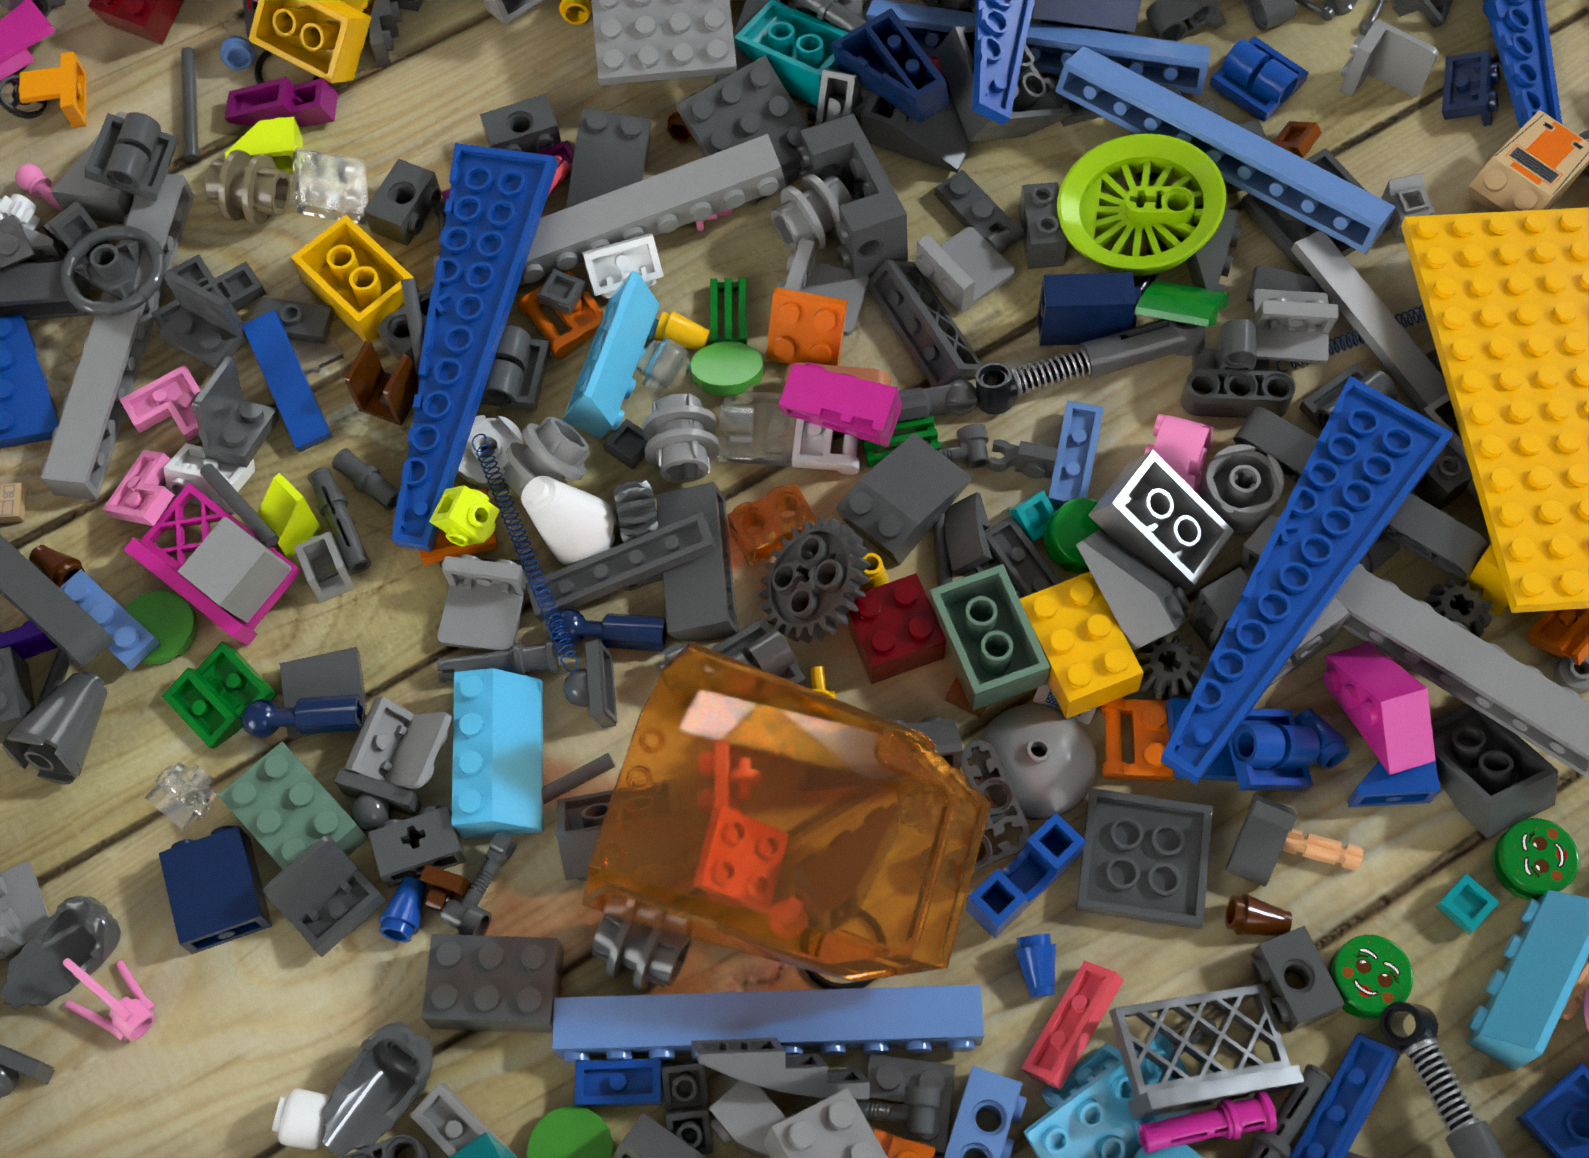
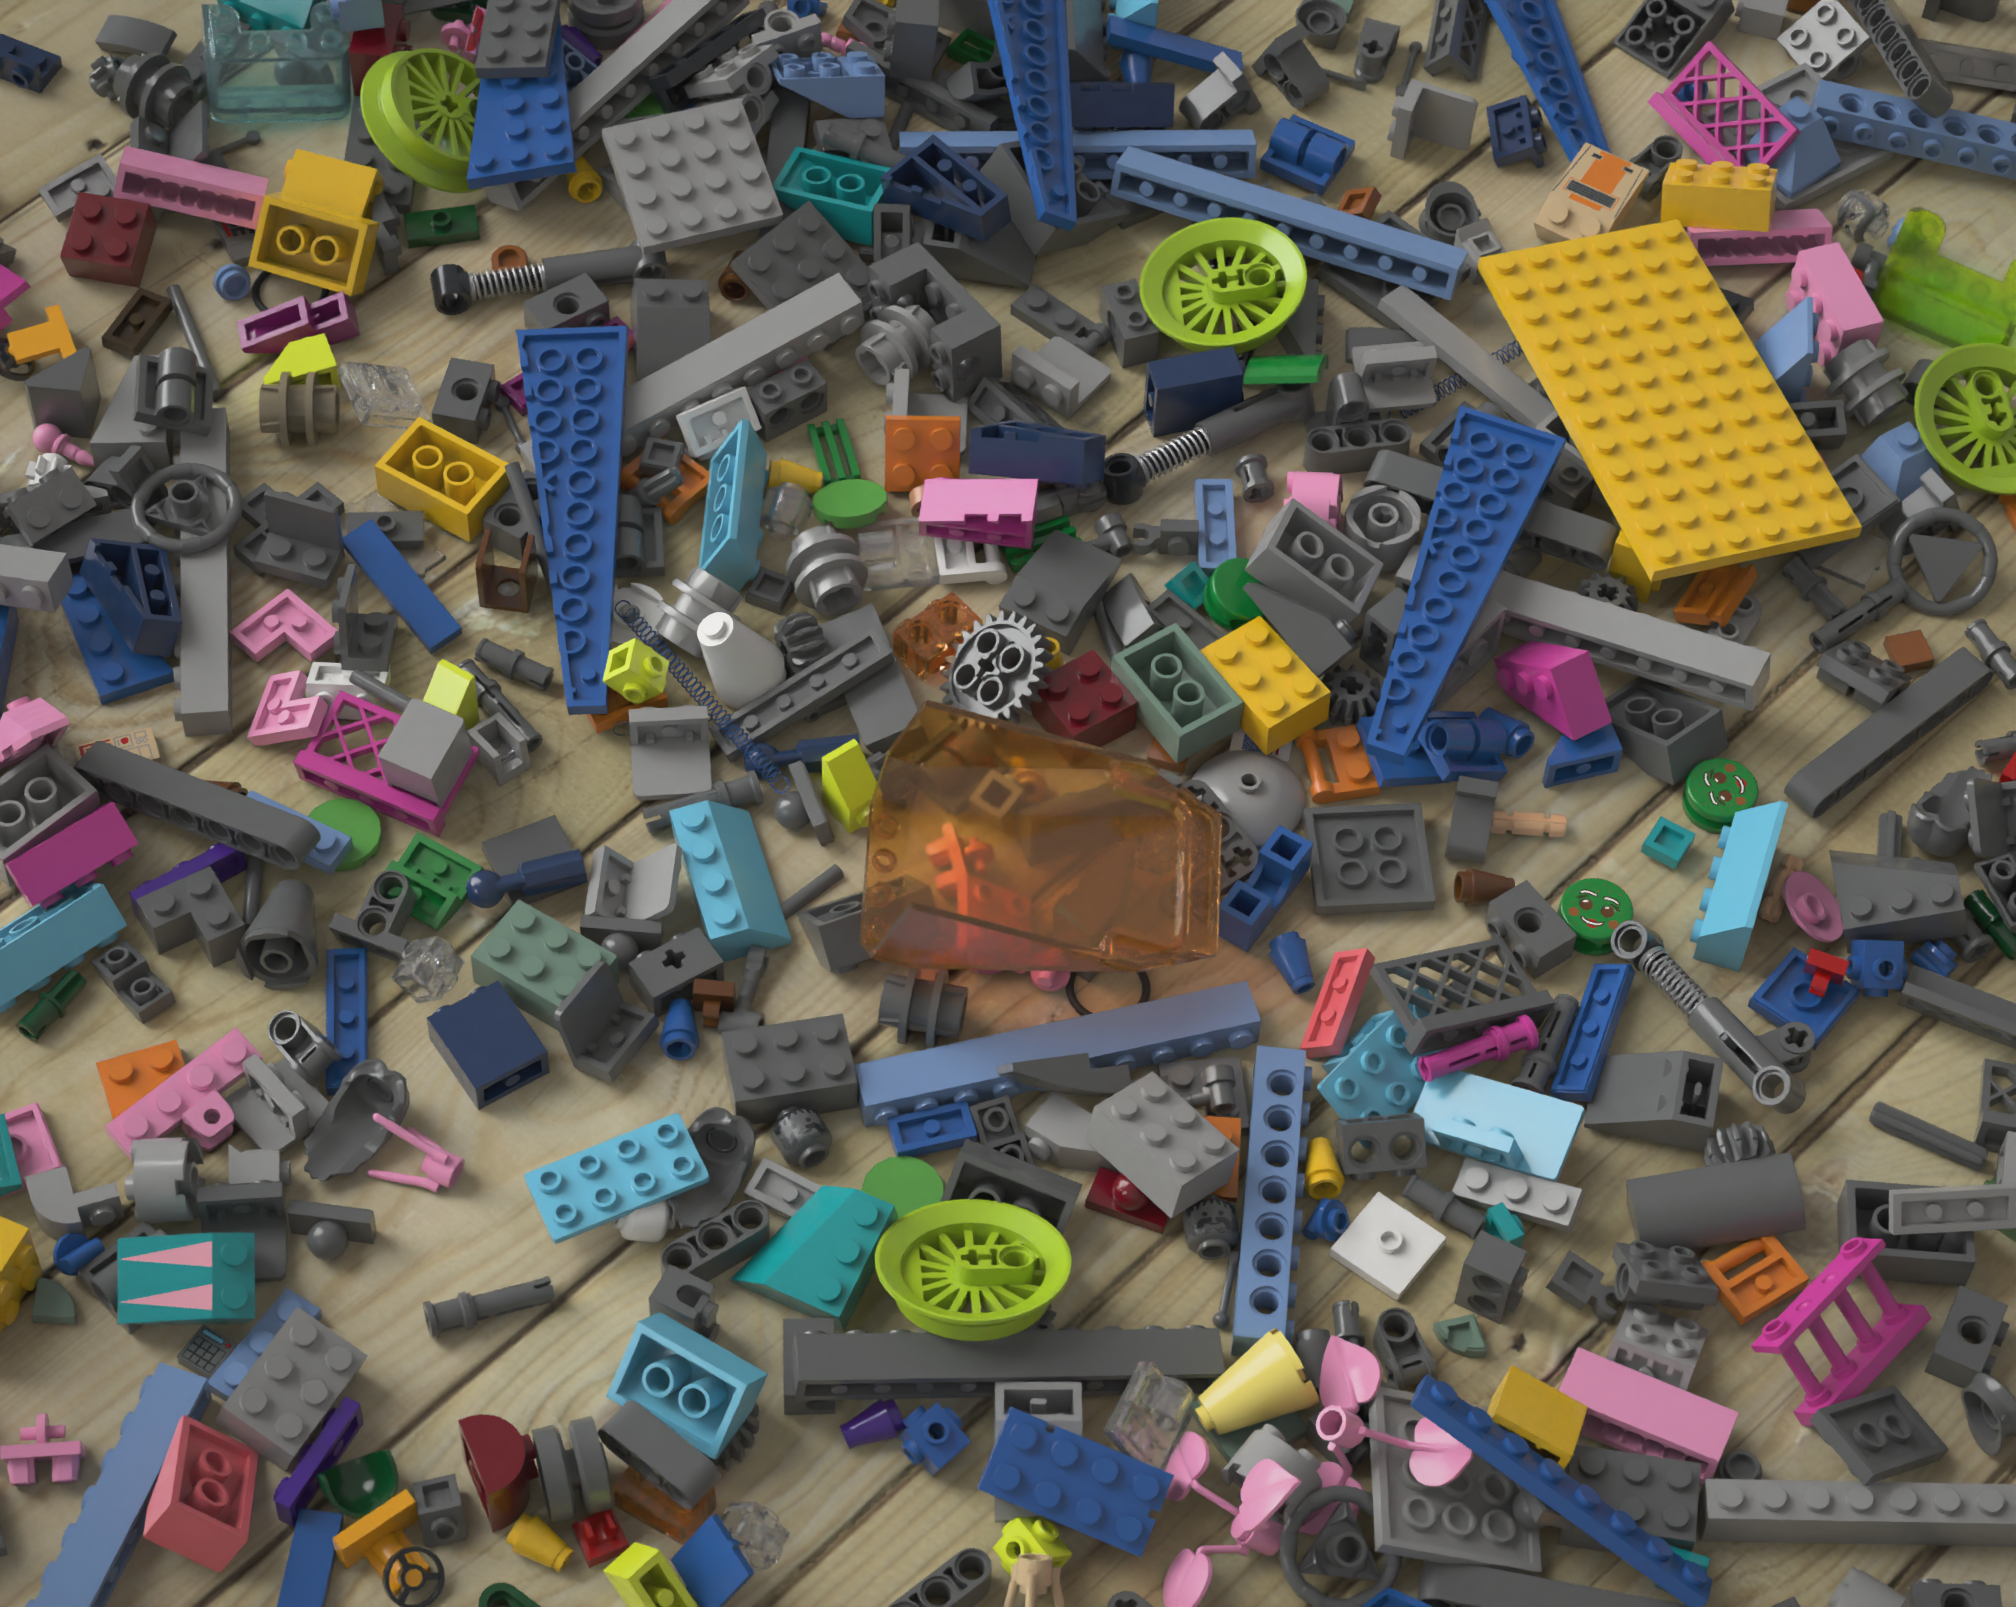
camera: 20 degrees left, 10 degrees down
(41, 853) = (302, 1045): none -> dark grey piece
(42, 347) = (135, 592): none -> dark blue wedge
(49, 137) = (66, 395): none -> dark grey slope
(99, 826) = (346, 1011): none -> blue tile
(143, 79) = (137, 323): none -> dark brown plate
(157, 719) = (379, 910): none -> dark grey tile
(280, 1082) = (616, 1178): none -> medium azure bracket
(429, 91) = (455, 288): none -> piece
(438, 27) = (441, 226): none -> dark green plate
(486, 1062) = (801, 1137): none -> dark grey head
(487, 73) = (508, 257): none -> dark orange tile
(540, 323) = (651, 490): none -> dark grey axle
(635, 672) = (848, 785): none -> neon yellow slope
(696, 251) = (788, 399): none -> dark grey brick
(914, 351) = (1038, 453): none -> dark blue wedge
(1127, 409) = (1254, 478): none -> dark grey bush
(1383, 158) = (1446, 210): none -> dark grey piece

